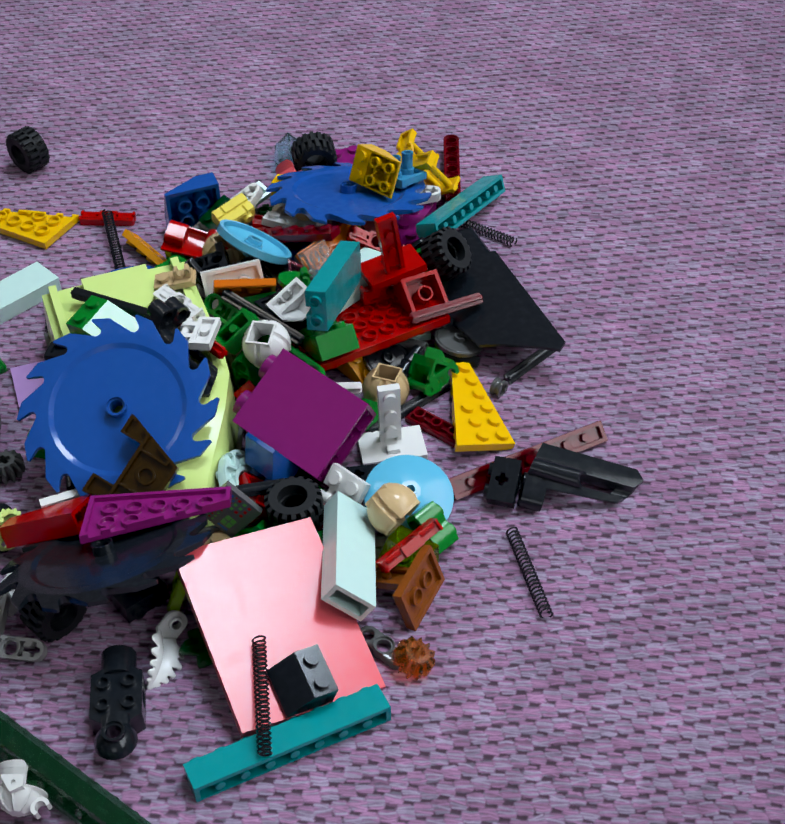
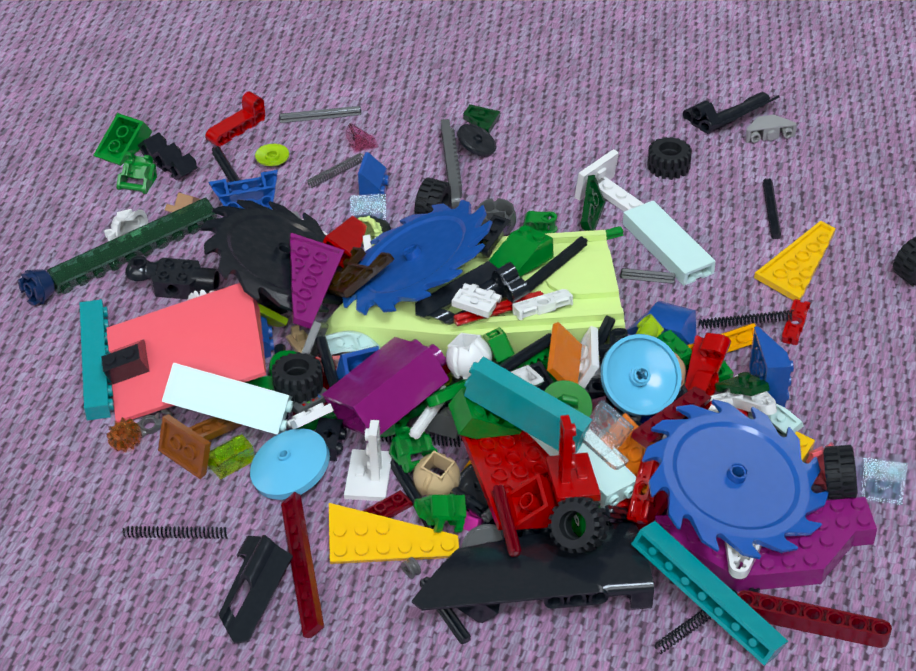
camera: 105 degrees right, 0 degrees up
(177, 278) = (581, 305): tan plate -> none
(236, 209) = (727, 385): light yellow brick -> none
(260, 702) = (119, 333): black piece -> none
(375, 169) = (740, 484): yellow slope -> none
(389, 506) = (260, 429): tan piece -> none
(407, 173) = (753, 523): dark azure plate -> none
(408, 545) = (216, 435): red piece -> none
(427, 162) = (804, 552): yellow fence -> none
(444, 537) = (243, 469): green brick -> none
(505, 494) = (277, 527): black brick -> none

